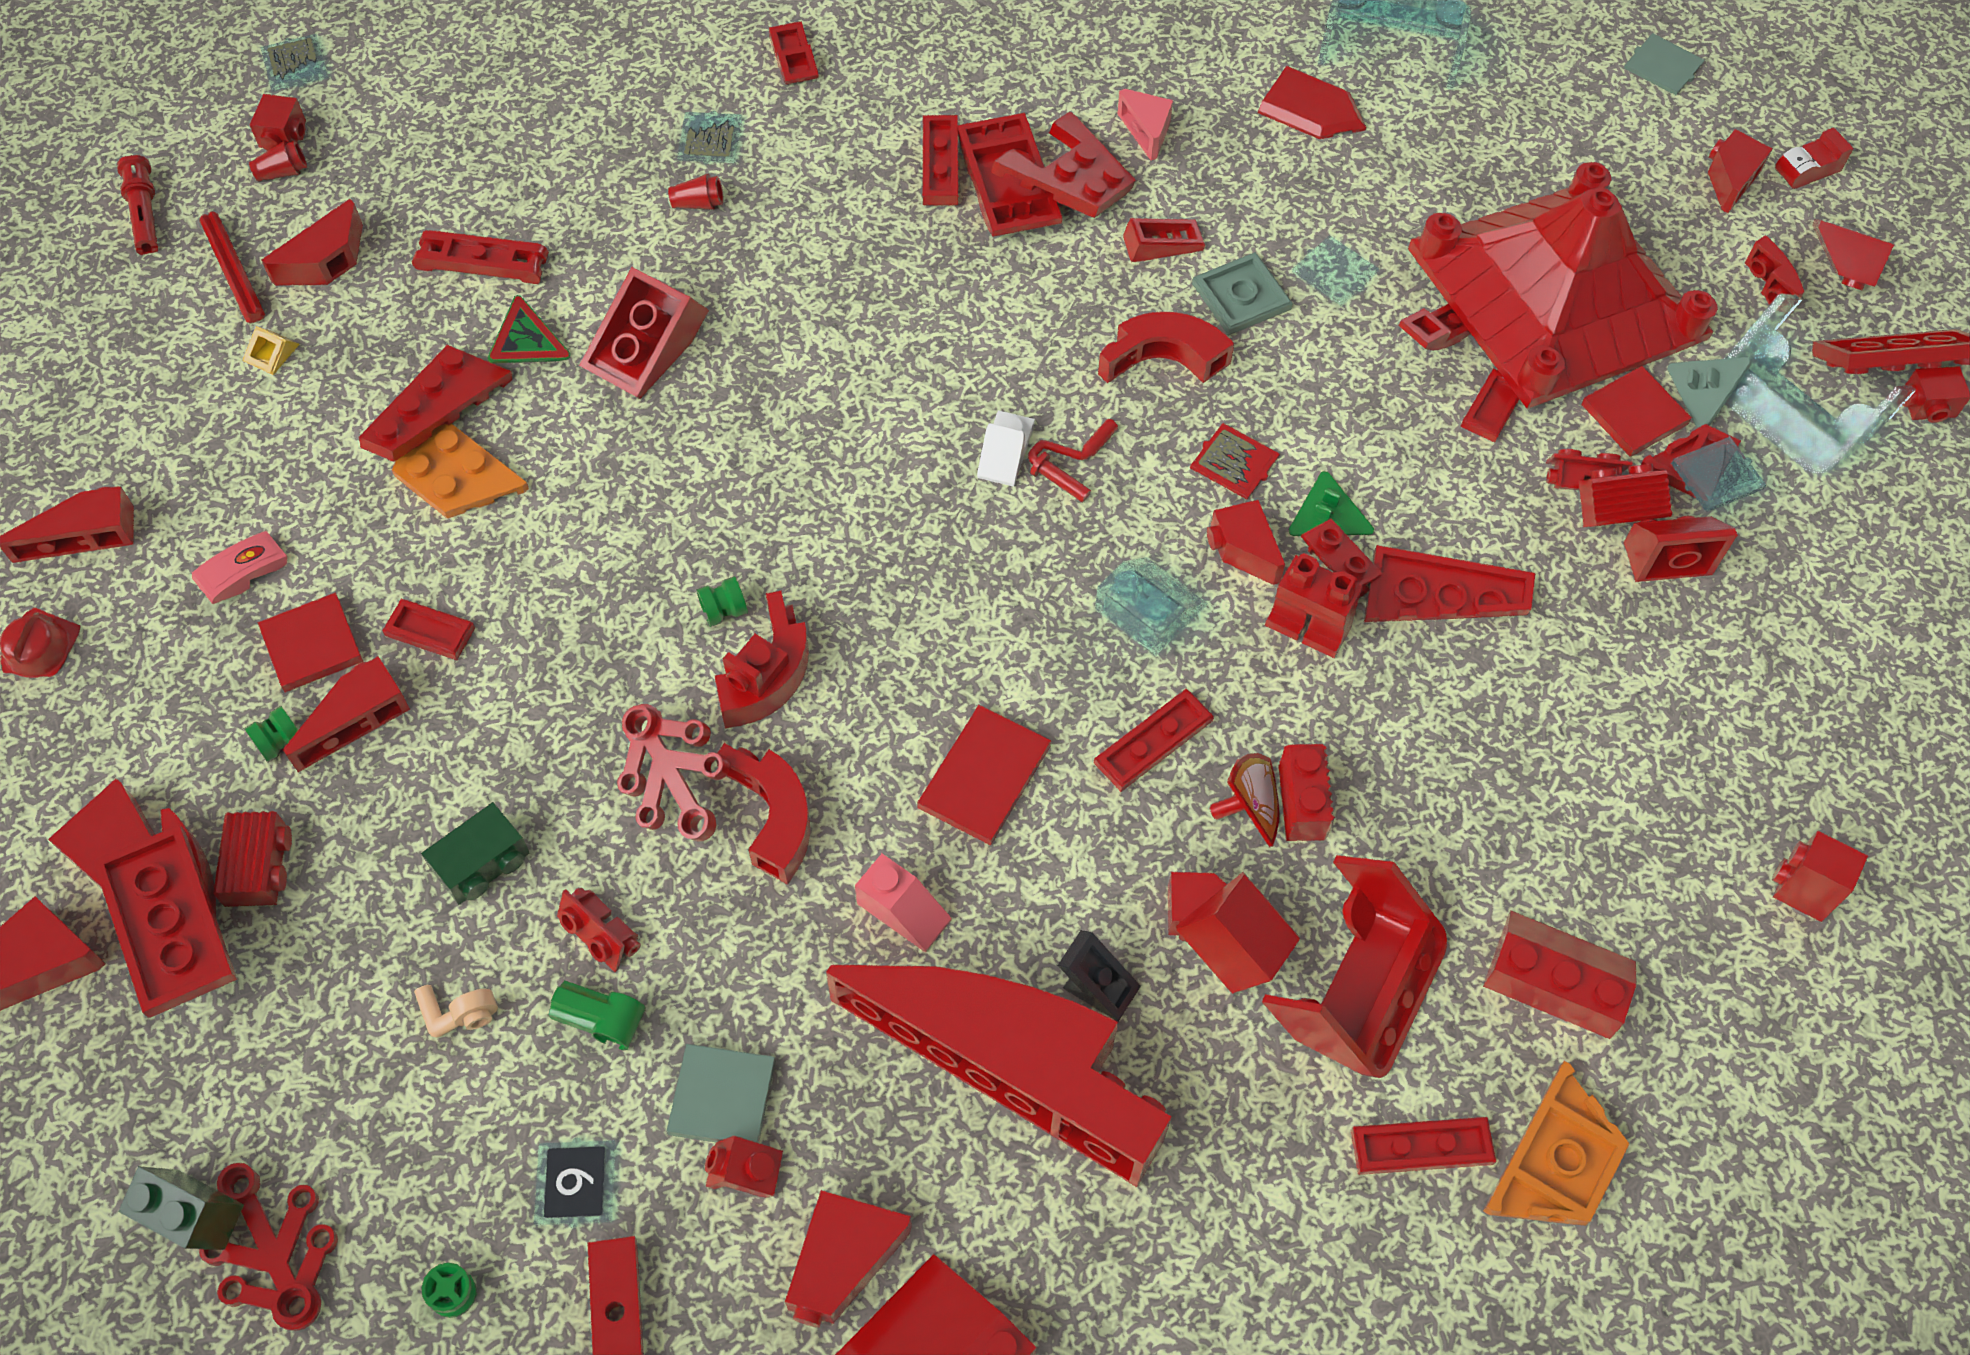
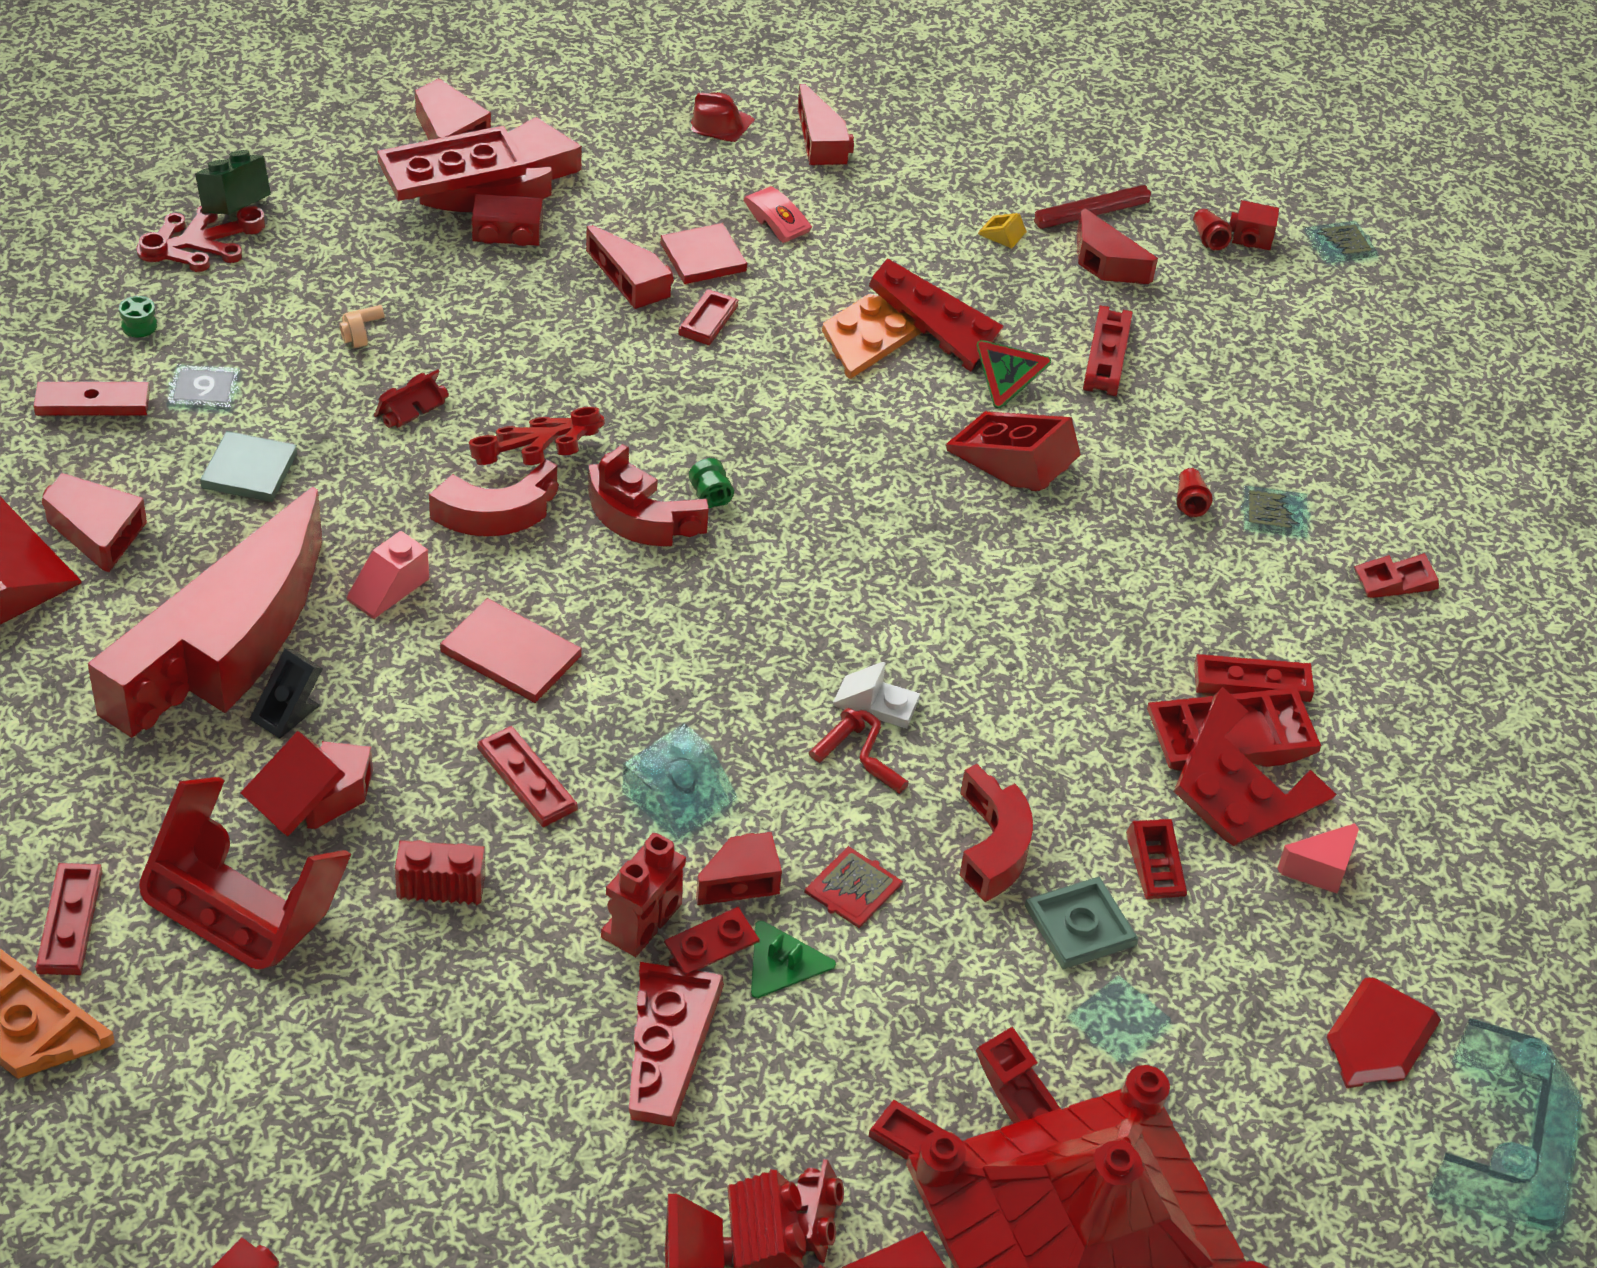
camera: 90 degrees right, 15 degrees down
(139, 193) = (1170, 151): red pin -> none
(272, 733) = (615, 222): green wheel -> none
(476, 854) = (487, 332): dark green brick -> none
(604, 1016) = (333, 398): green piece -> none
(743, 1166) = (182, 471): red bracket -> none
(1255, 792) = (445, 817): shield -> none
(1562, 975) = (205, 1053): red slope -> none

